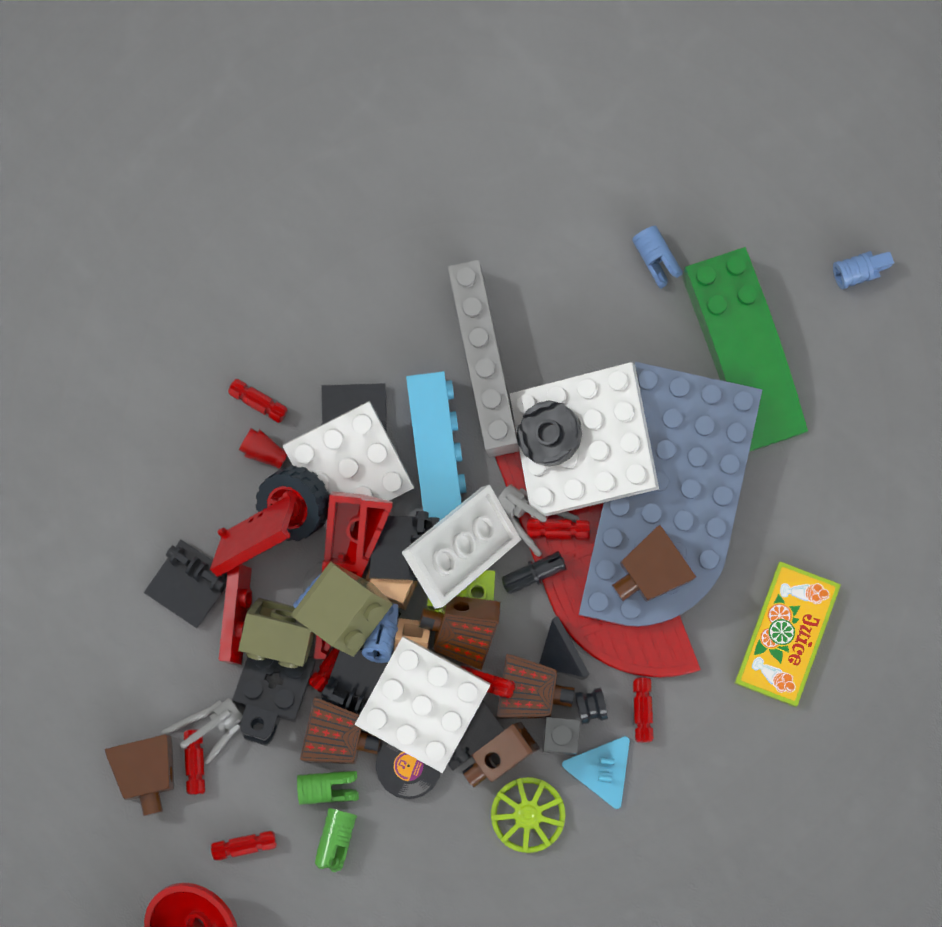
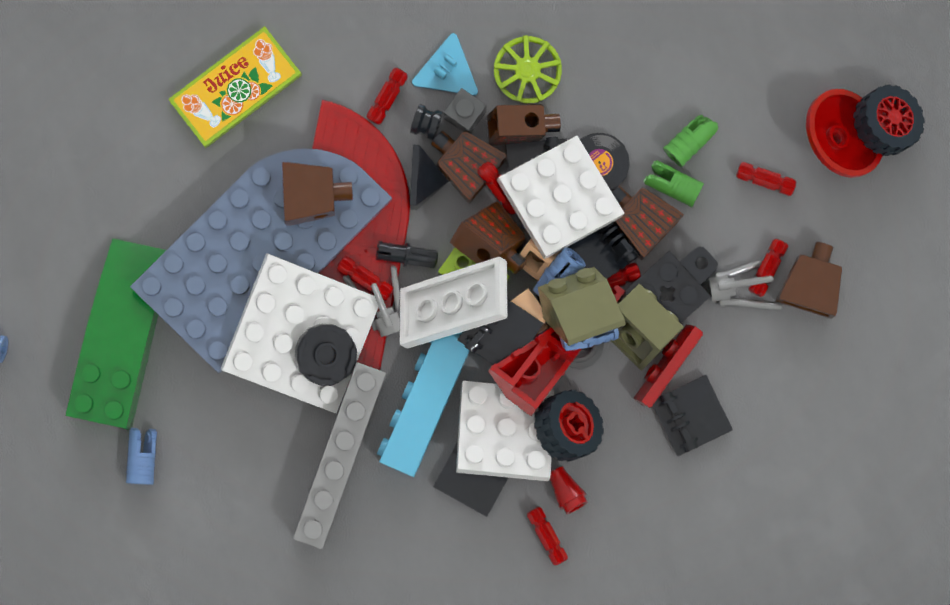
camera: 150 degrees left, 5 degrees up
(253, 535) = (616, 415): red door -> none

